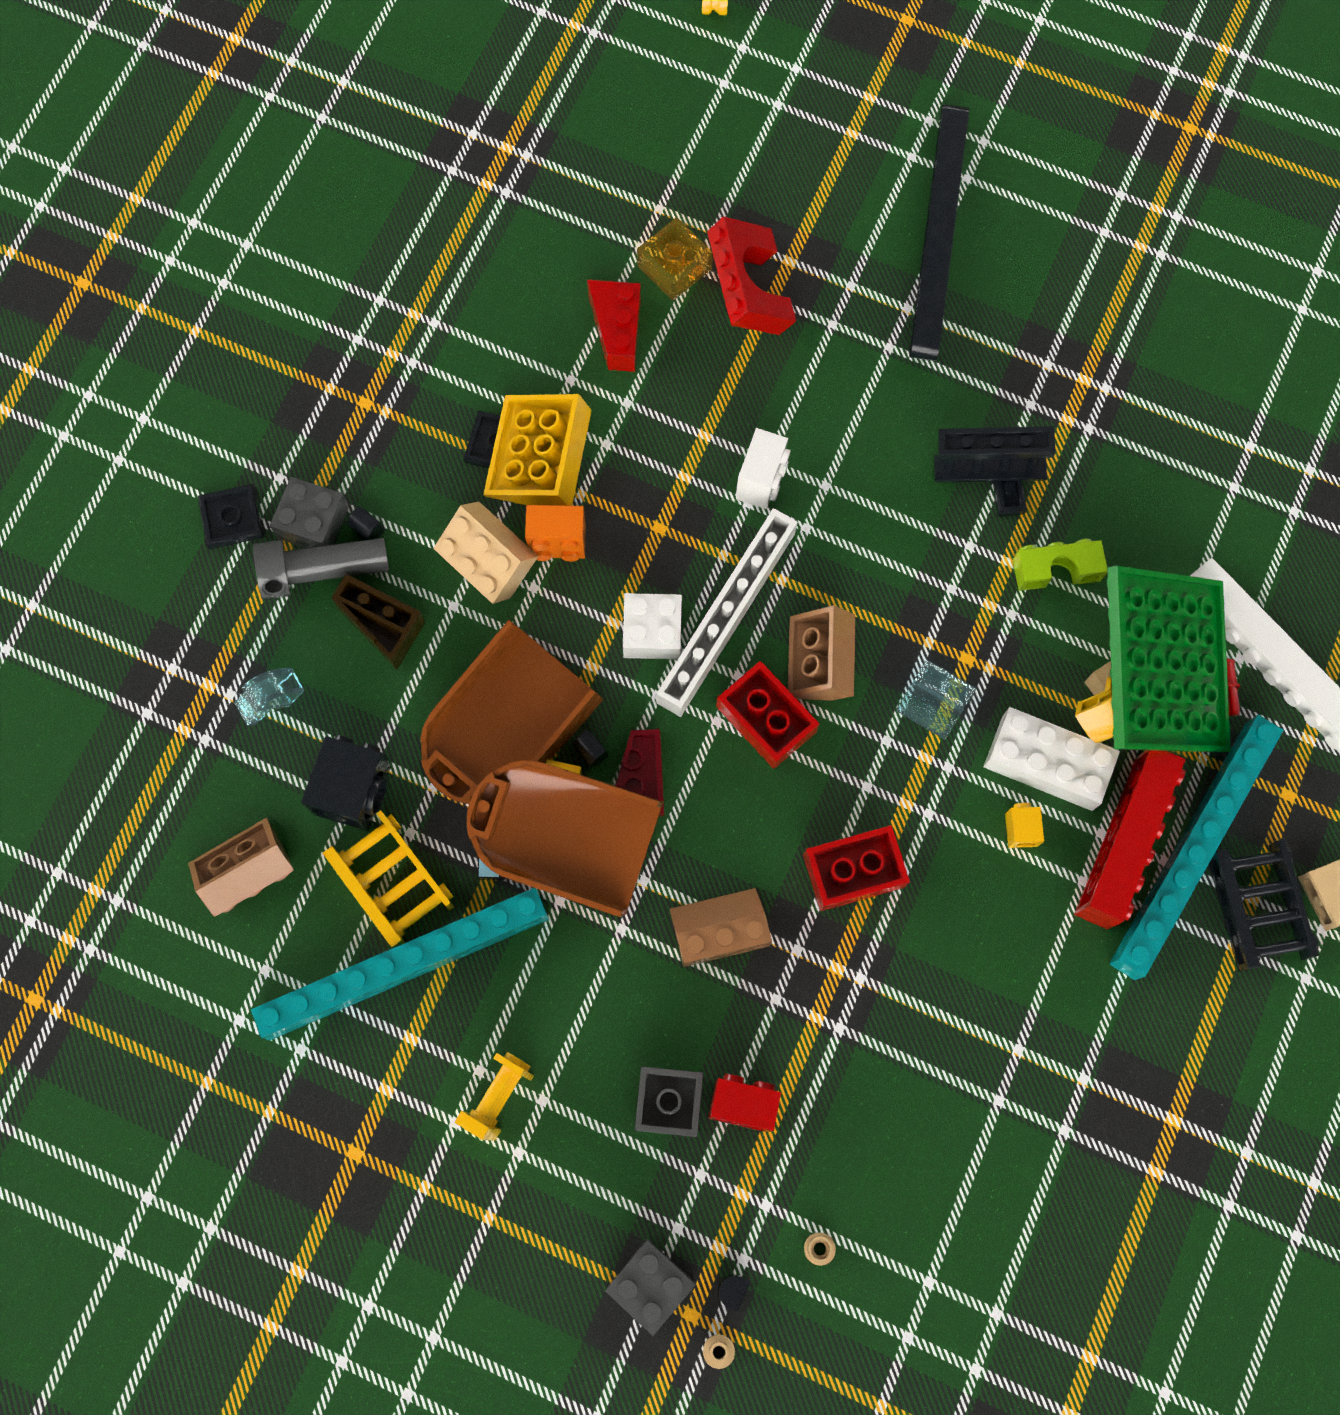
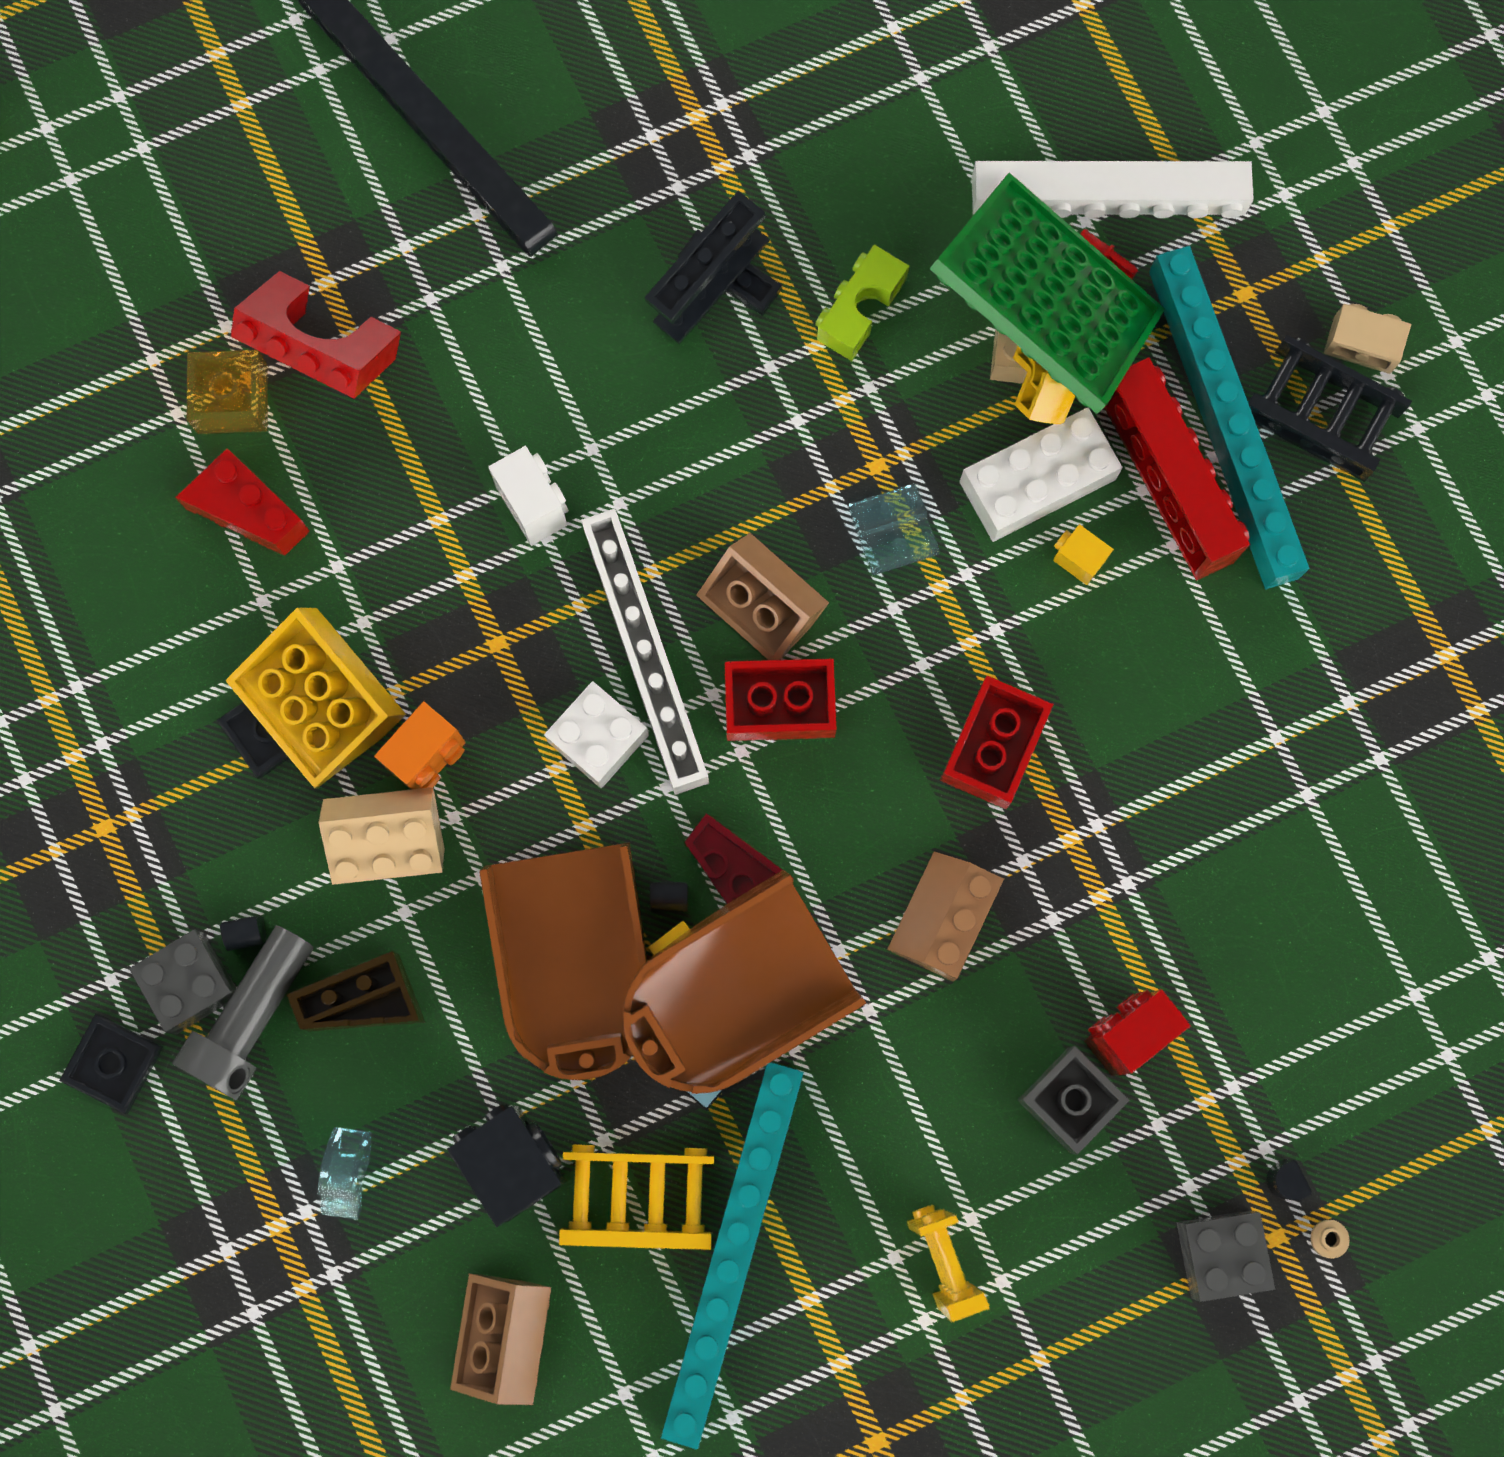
camera: 50 degrees left, 5 degrees up
(829, 1244) = (1322, 1070): tan plate -> none

